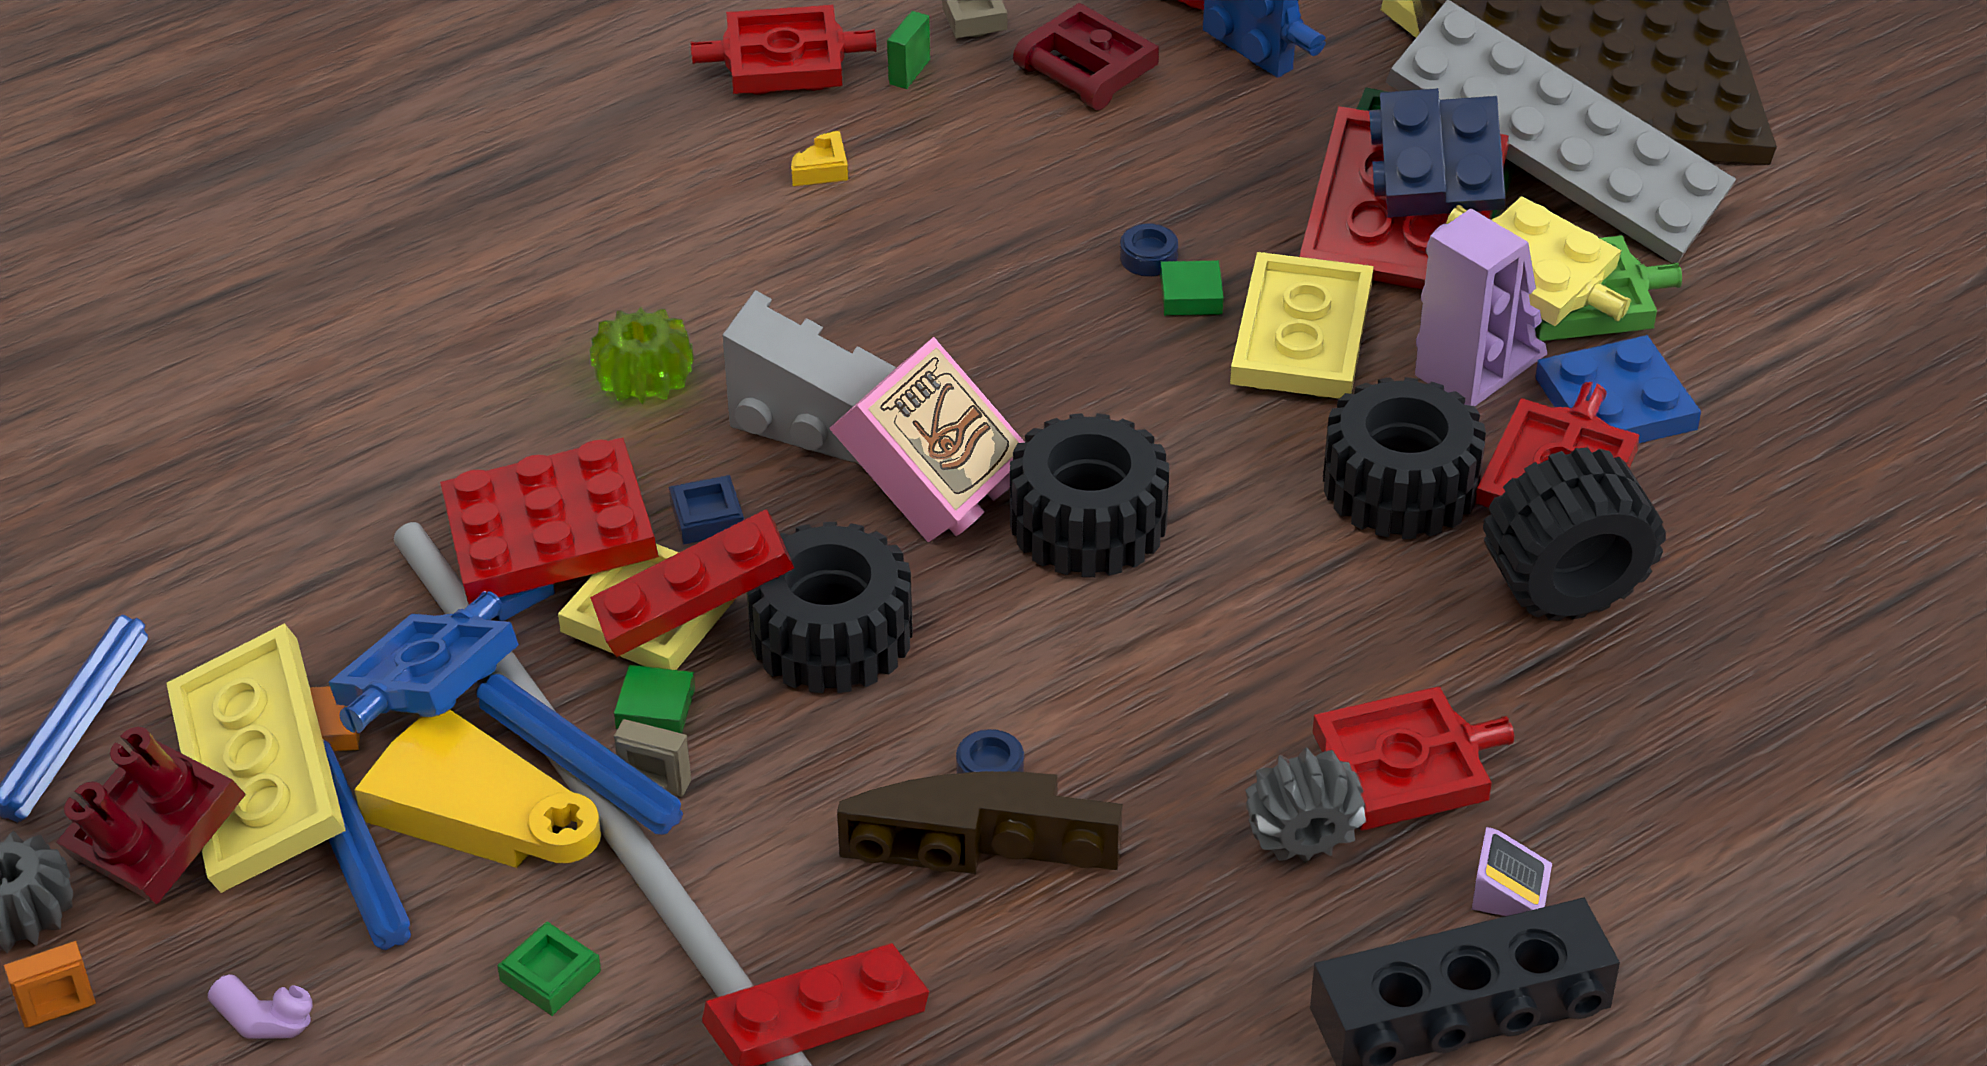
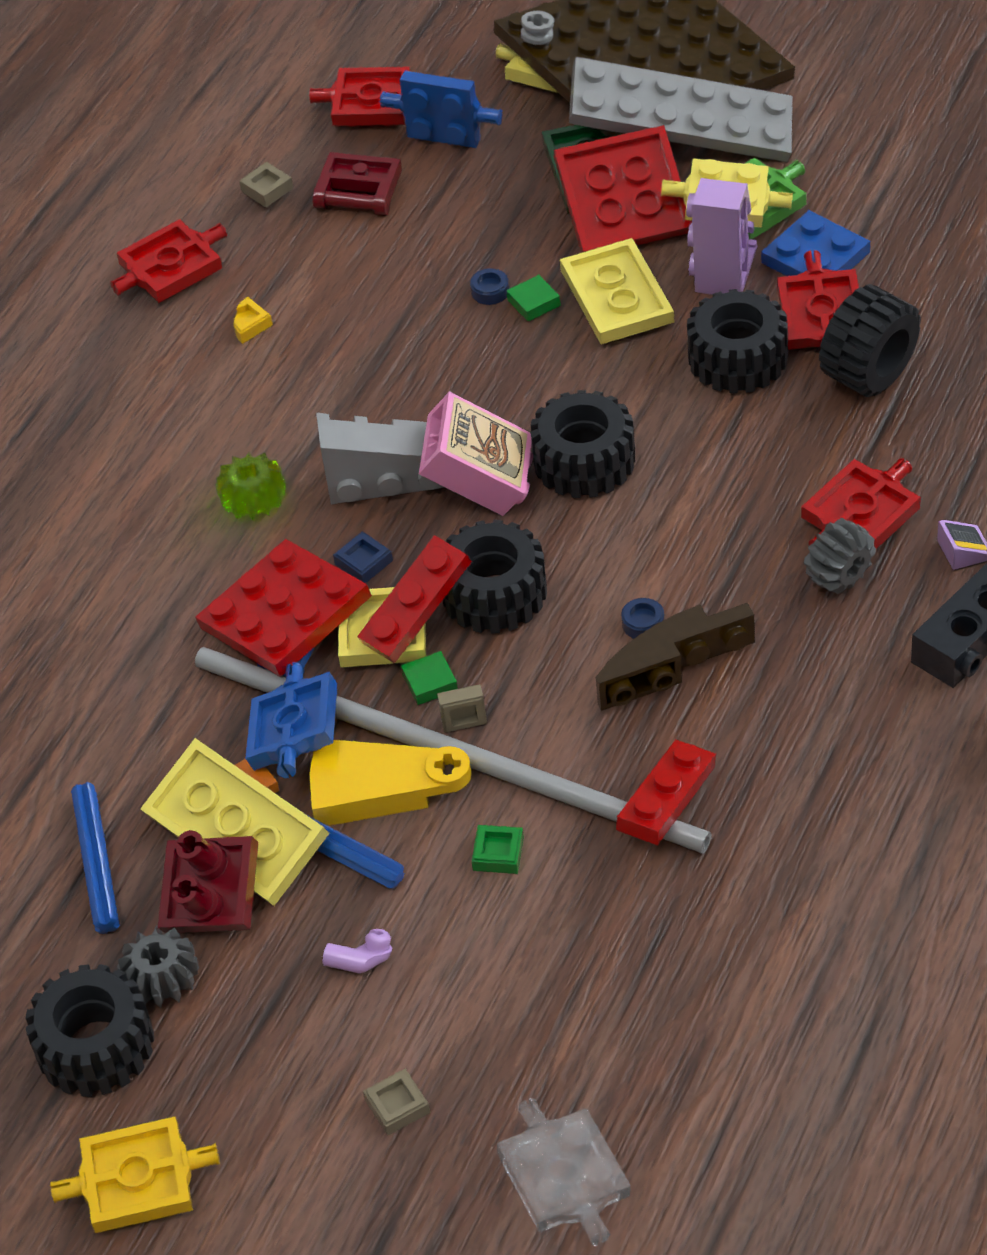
camera: 25 degrees left, 5 degrees up
(50, 984) = (230, 1002): orange tile -> none
(580, 754) = (423, 725): blue axle -> none
(908, 49) = (249, 227): green tile -> none
(1437, 153) = (632, 153): dark blue plate -> none

